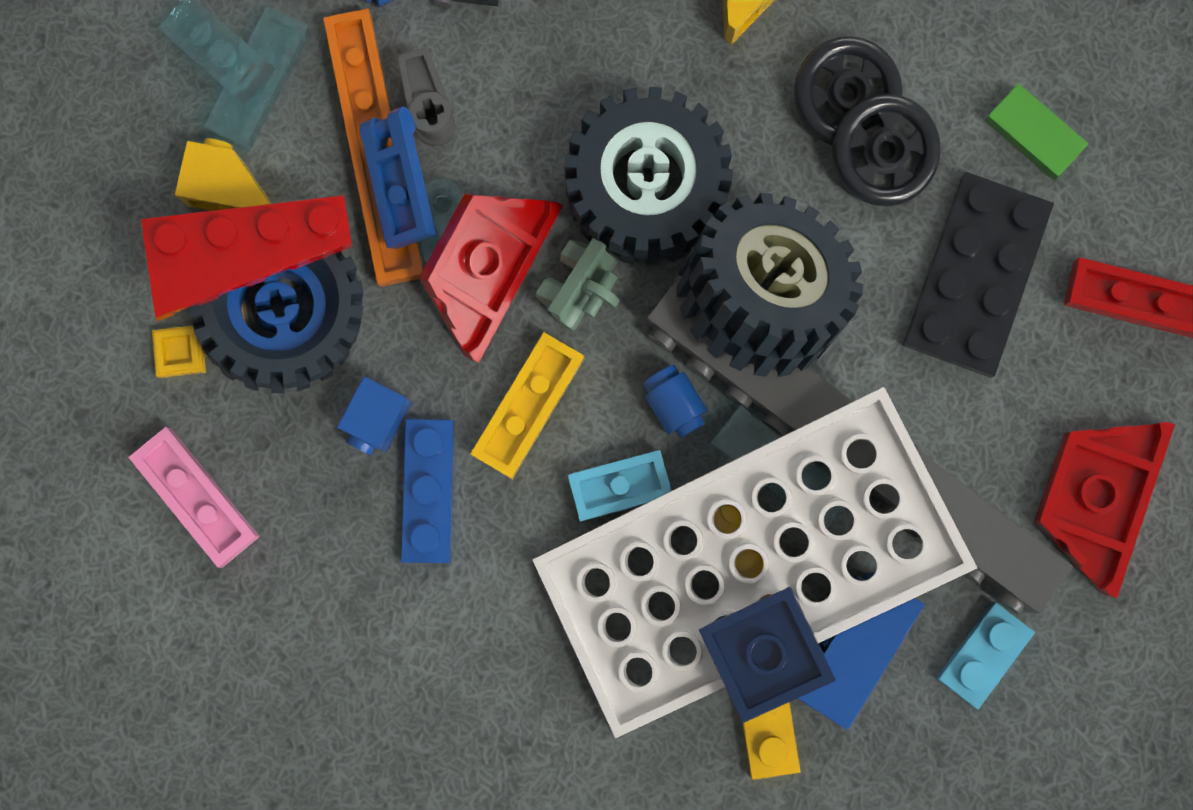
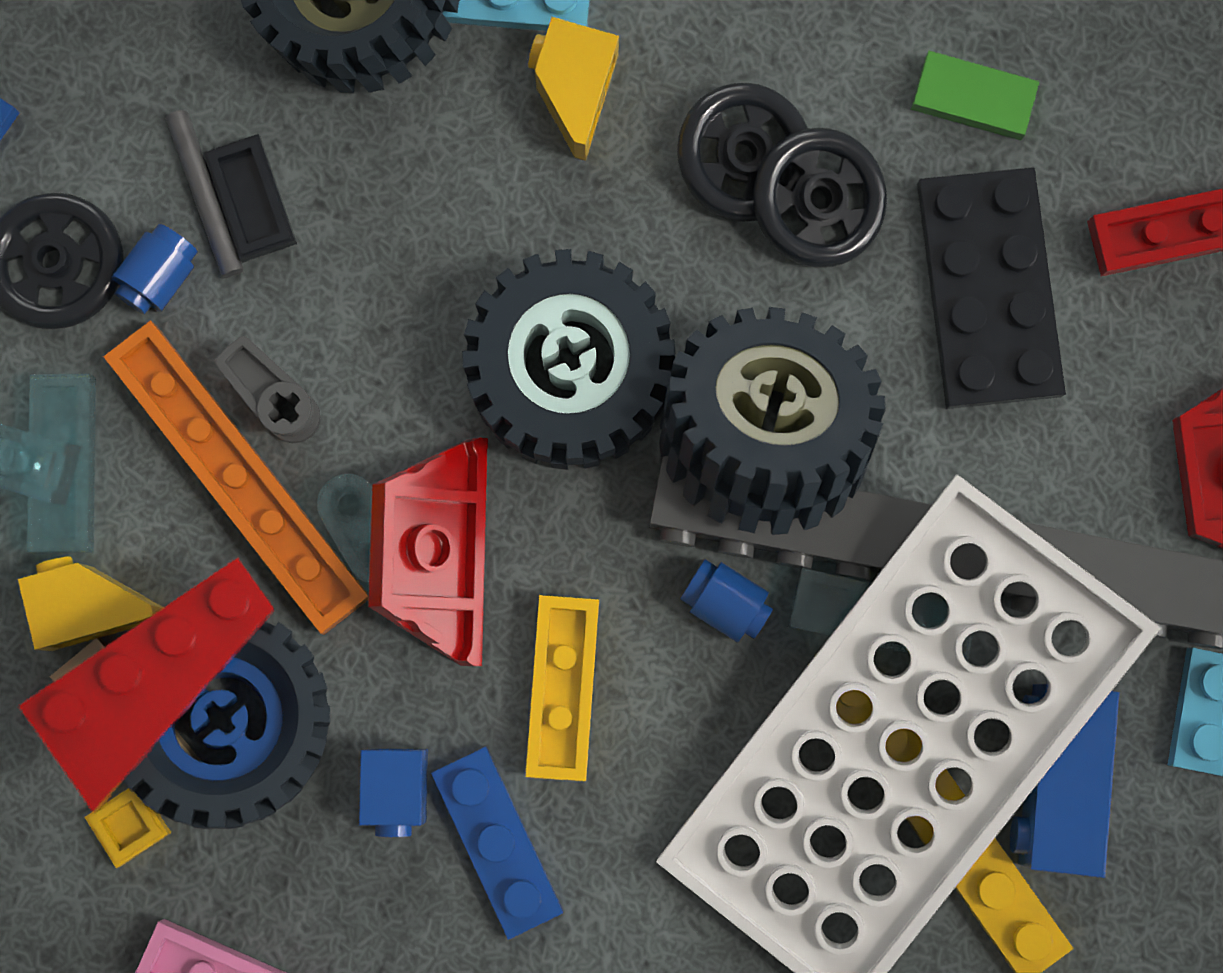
camera: 30 degrees left, 0 degrees up
(397, 179) = (285, 503): blue plate -> none
(585, 287) = (562, 519): sand green hips -> none
(619, 485) = (712, 727): medium azure plate -> none
(767, 654) = (977, 841): dark blue plate -> none

